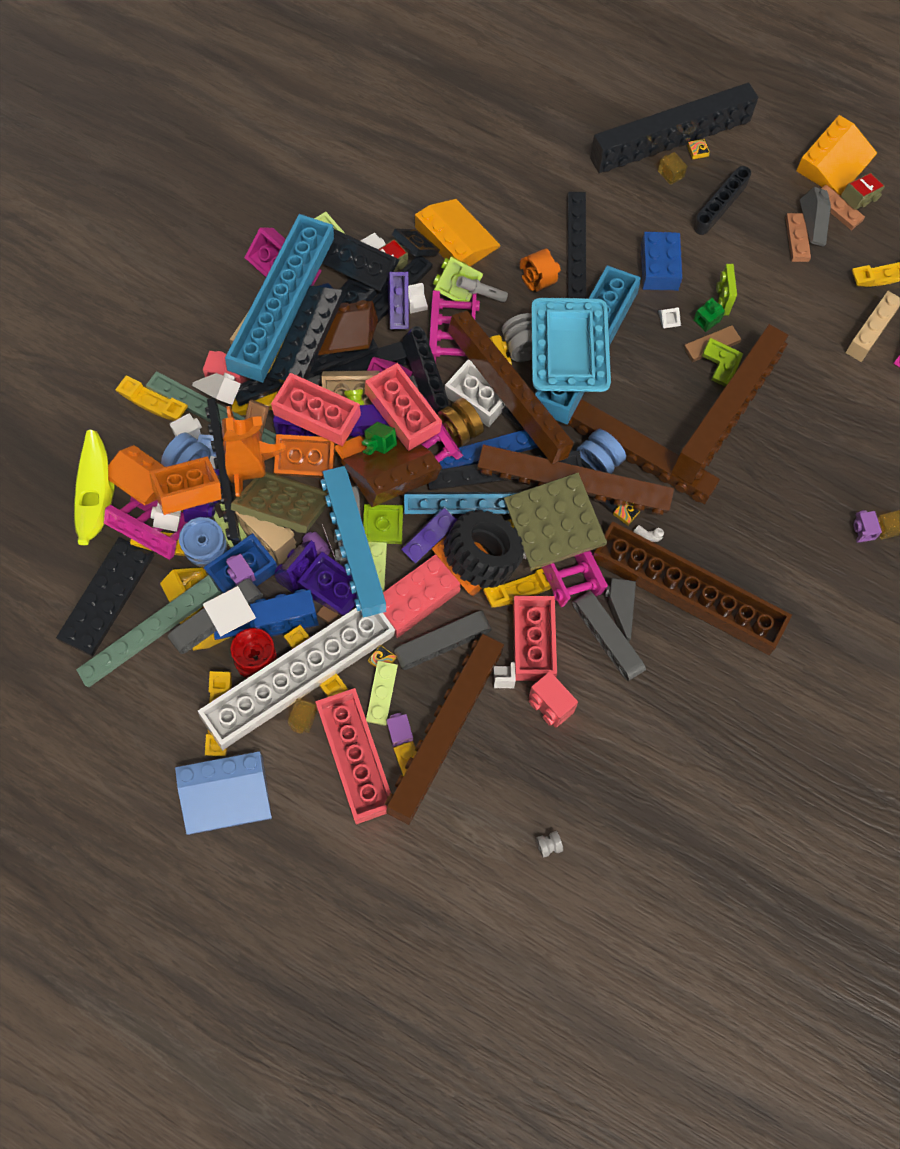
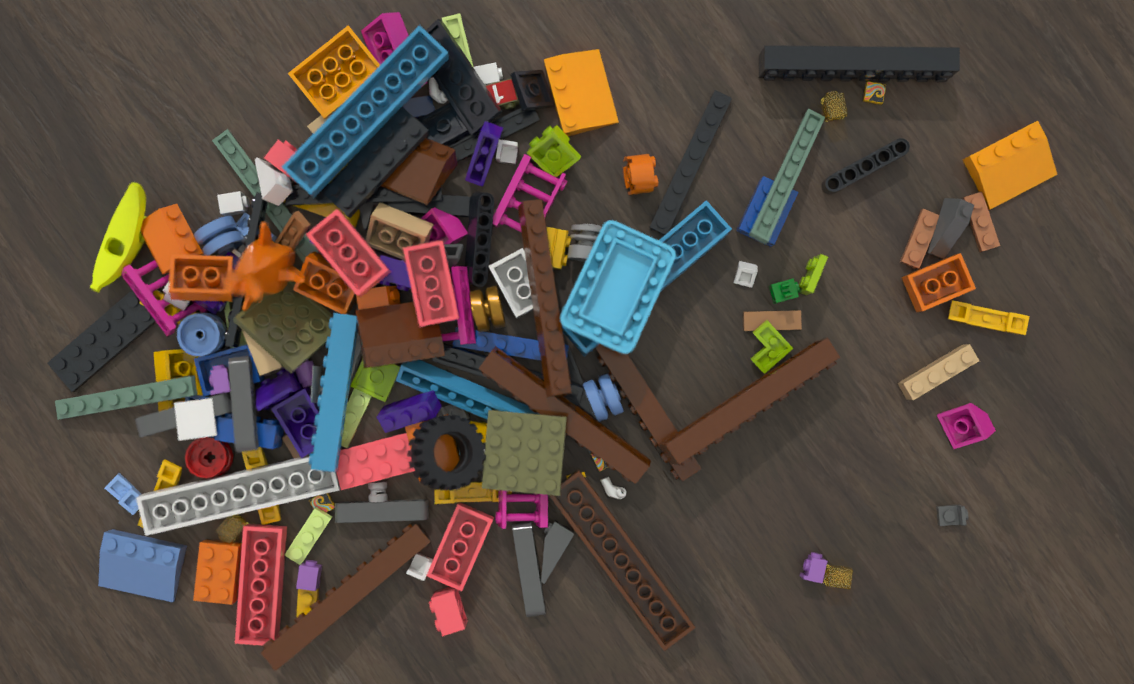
camera: 20 degrees right, 20 degrees up
(149, 400) = (211, 155): yellow slope -> none
(181, 730) = (124, 492): none -> light blue slope
(233, 288) = (334, 71): none -> light orange slope
(271, 580) = (243, 404): none -> dark grey beam
(306, 763) = (218, 572): none -> orange brick
(332, 279) = (435, 92): none -> white arm
(355, 395) = (394, 248): lime wheel -> none
(379, 438) = (398, 302): green brick -> none
(430, 621) = (378, 486): none -> light grey wheel
(474, 286) = (566, 170): light grey pin -> none
(664, 222) = (786, 176): none -> sand green plate
(833, 258) = (938, 283): none -> orange brick
(863, 191) = (1012, 218): brick -> none

